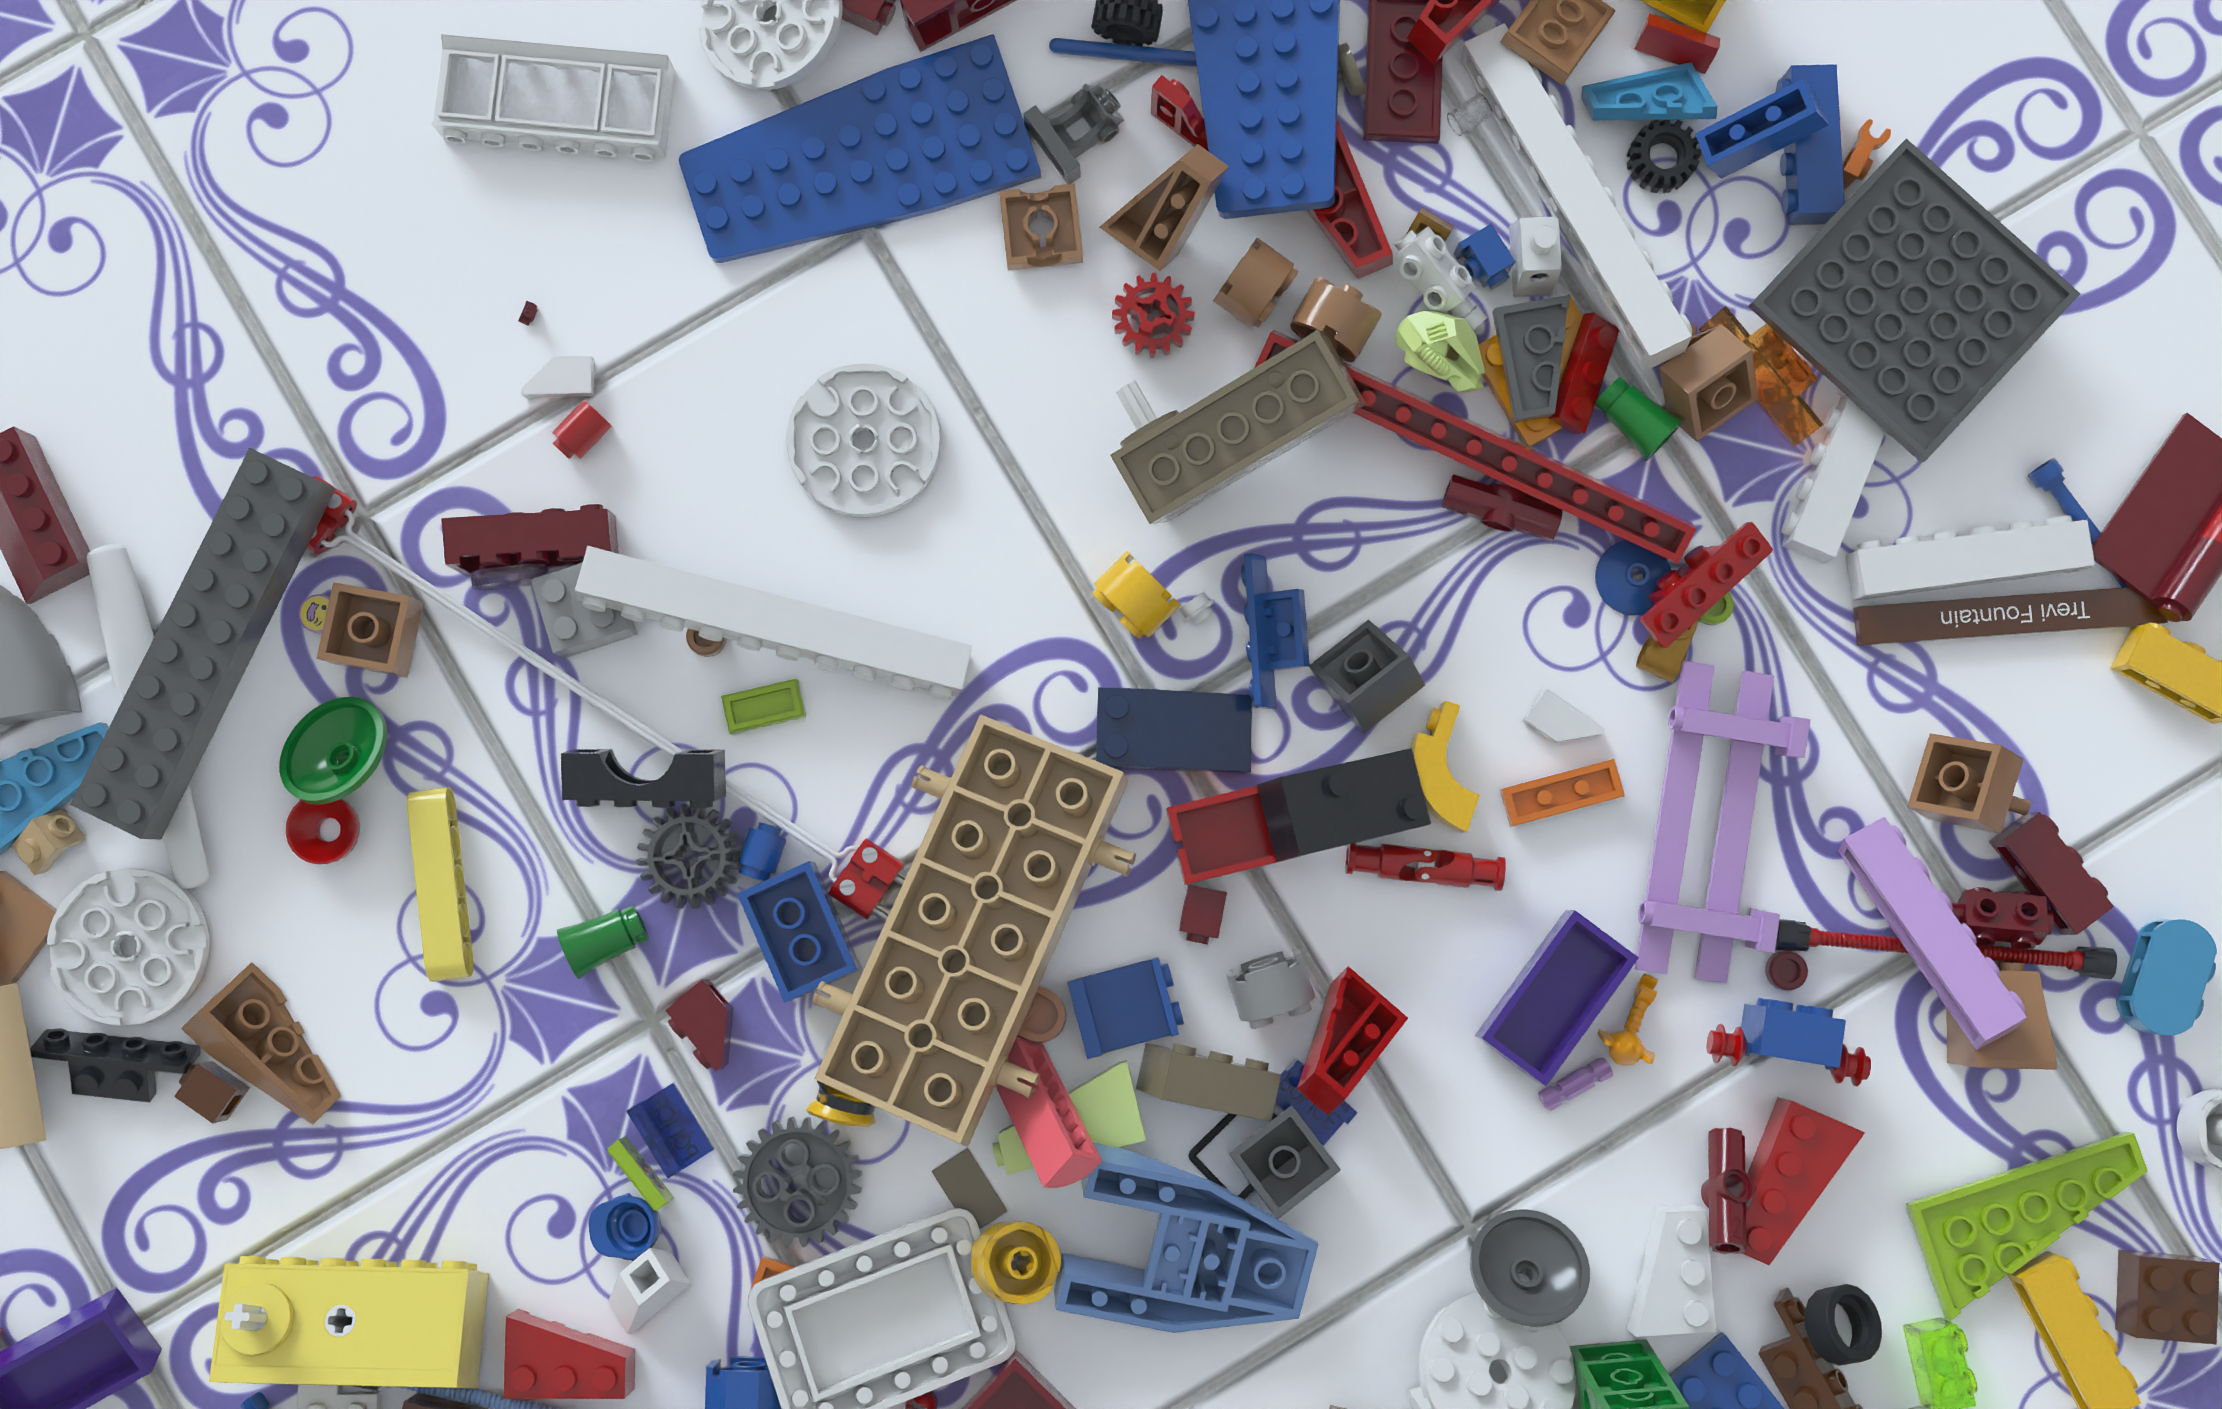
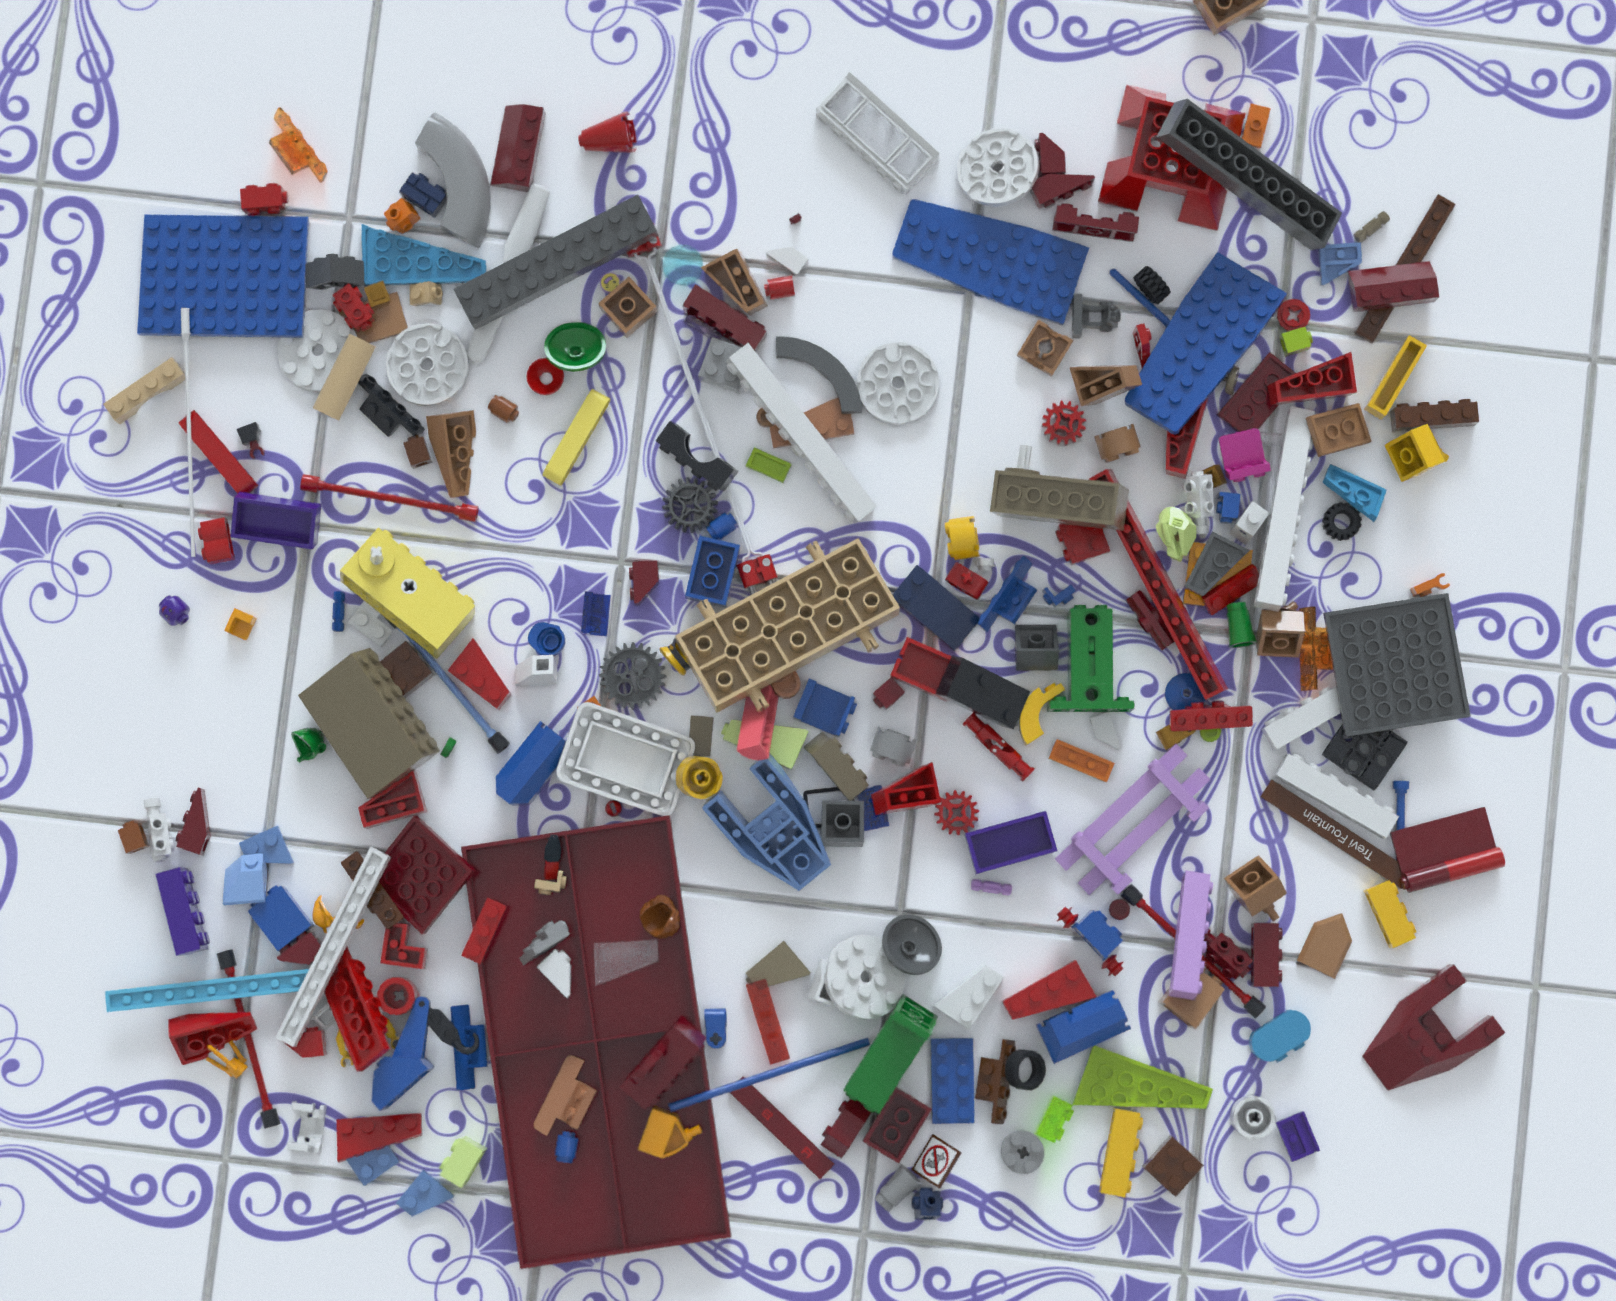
camera: 40 degrees right, 0 degrees up
(87, 1261) = (313, 484): none -> red hose
(152, 393) = (610, 135): none -> red cone
(295, 925) = (503, 409): none -> dark orange brick
(409, 506) = (682, 265): none -> clear light blue tile
(506, 467) = (737, 281): none -> medium nougat wedge
(601, 939) = (627, 512): green plant -> none
(640, 1173) = (569, 622): lime tile -> none
(737, 493) = (827, 365): none -> dark grey tile
(802, 569) = (826, 419): none -> nougat wing
(1189, 655) = (966, 580): none -> red beam
(1313, 471) = (1081, 542): none -> red plate
(1337, 315) = (1140, 484): medium nougat brick -> none
(1350, 569) = (1063, 597): none -> blue bracket
(1450, 166) = (1243, 455): none -> dark pink bracket
(1456, 1014) = (945, 803): none -> red gear
(1467, 638) = (1090, 663): none -> green brick
(1625, 1045) = (1025, 886): light orange piece -> none
(1677, 43) = (1386, 476): red slope -> none
(1727, 1191) = (1012, 983): dark red piece -> none
(1762, 128) = (1389, 541): blue brick -> none
(1814, 162) = (1411, 564): blue brick -> none
(1878, 1192) = (1084, 1027): none -> blue brick
(1980, 482) = (1374, 772): none -> black connector
(2123, 790) = (1326, 945): none -> medium nougat tile

